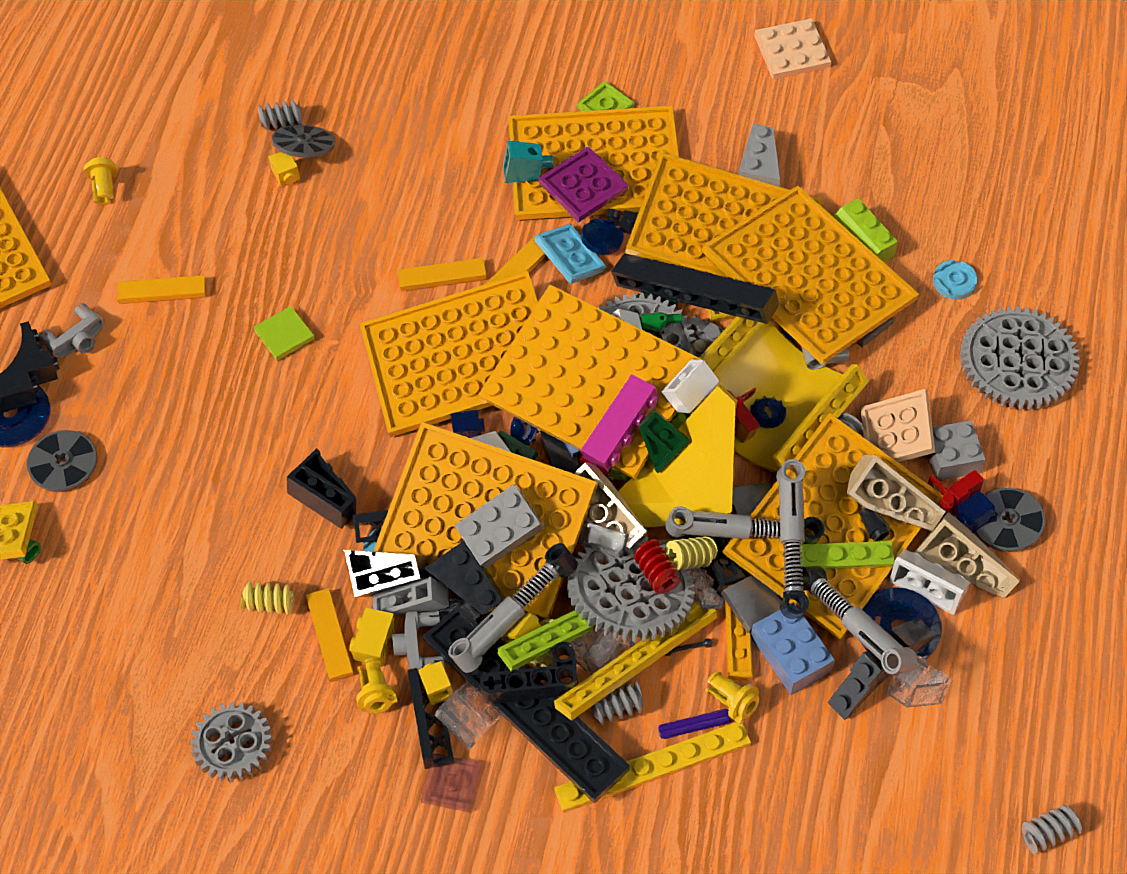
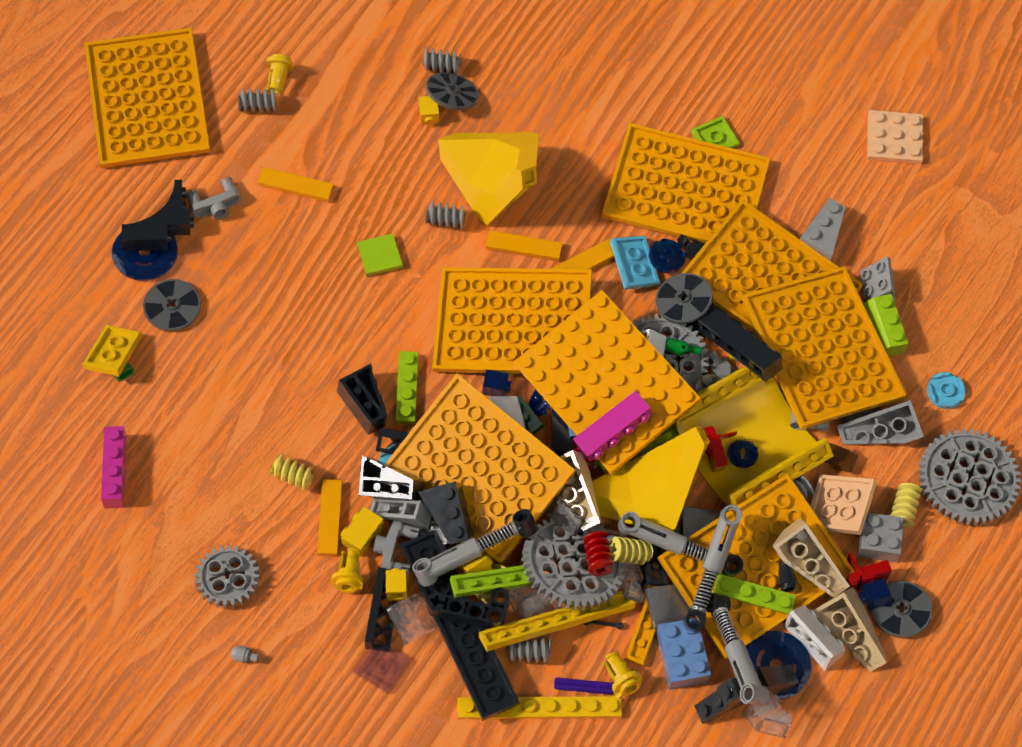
camera: 15 degrees right, 5 degrees up
(52, 662) = (114, 467): none -> dark pink brick
(87, 214) = (257, 99): none -> light grey piece
(282, 825) = (243, 654): none -> light grey cylinder
(343, 268) = (445, 214): none -> light grey piece
(367, 464) = (407, 387): none -> lime plate
(377, 203) = (491, 168): none -> yellow panel
(500, 526) = (487, 479): light grey brick -> none
(524, 161) = (625, 171): teal torso -> none
(583, 184) = (667, 205): magenta plate -> none
(656, 271) = (693, 307): none -> dark grey piece
(661, 439) = (641, 451): dark green wing -> none
(690, 386) = (680, 416): white brick -> none
(836, 188) = (878, 280): none -> light grey bracket
(879, 384) = (842, 458): none -> reddish brown slope
(912, 332) = (889, 425): none -> light grey wedge
(966, 404) = (906, 502): none -> light yellow piece

